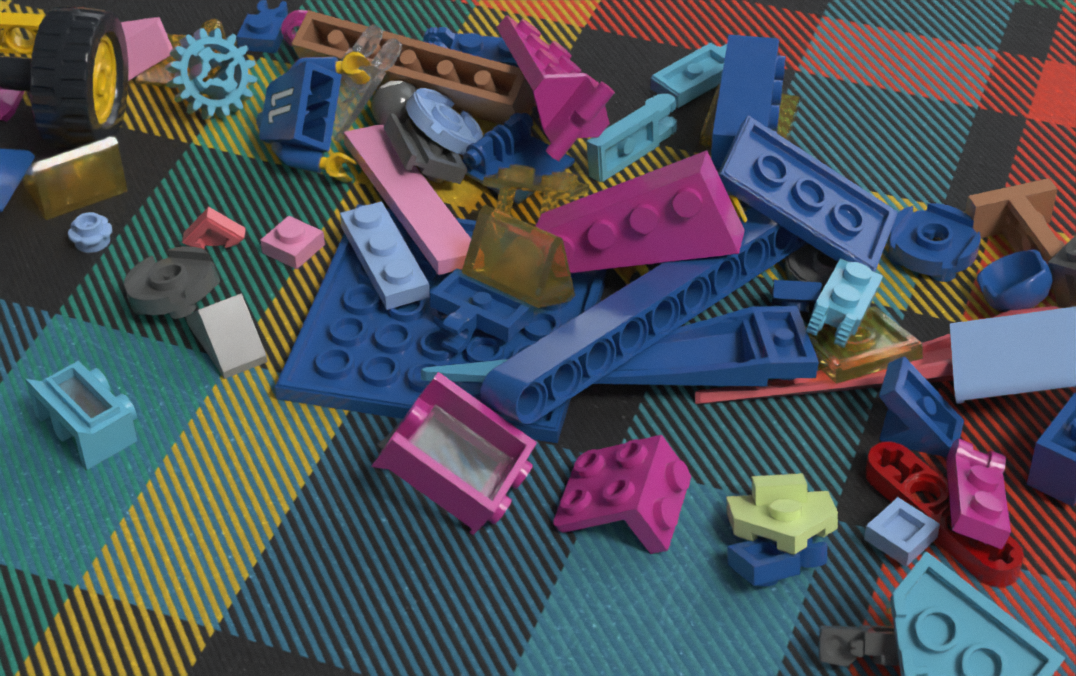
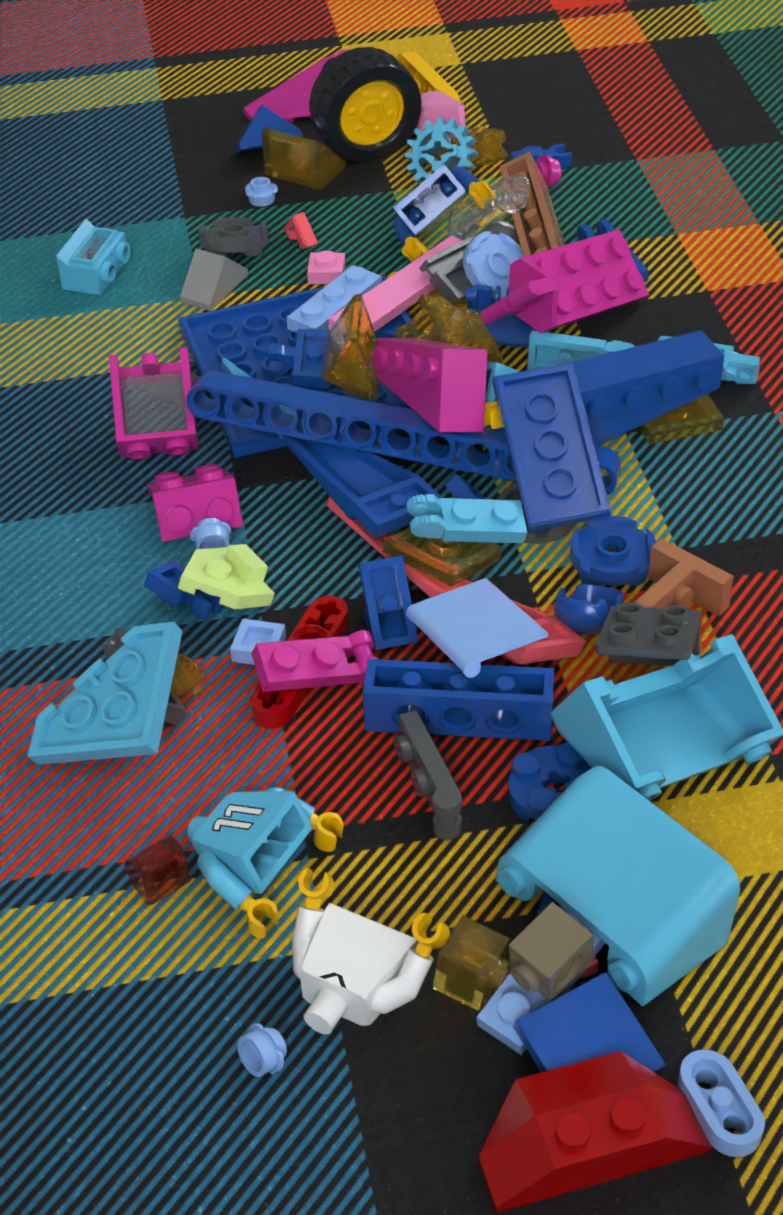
camera: 60 degrees right, 0 degrees up
(701, 503) = (210, 534): none -> light blue plate

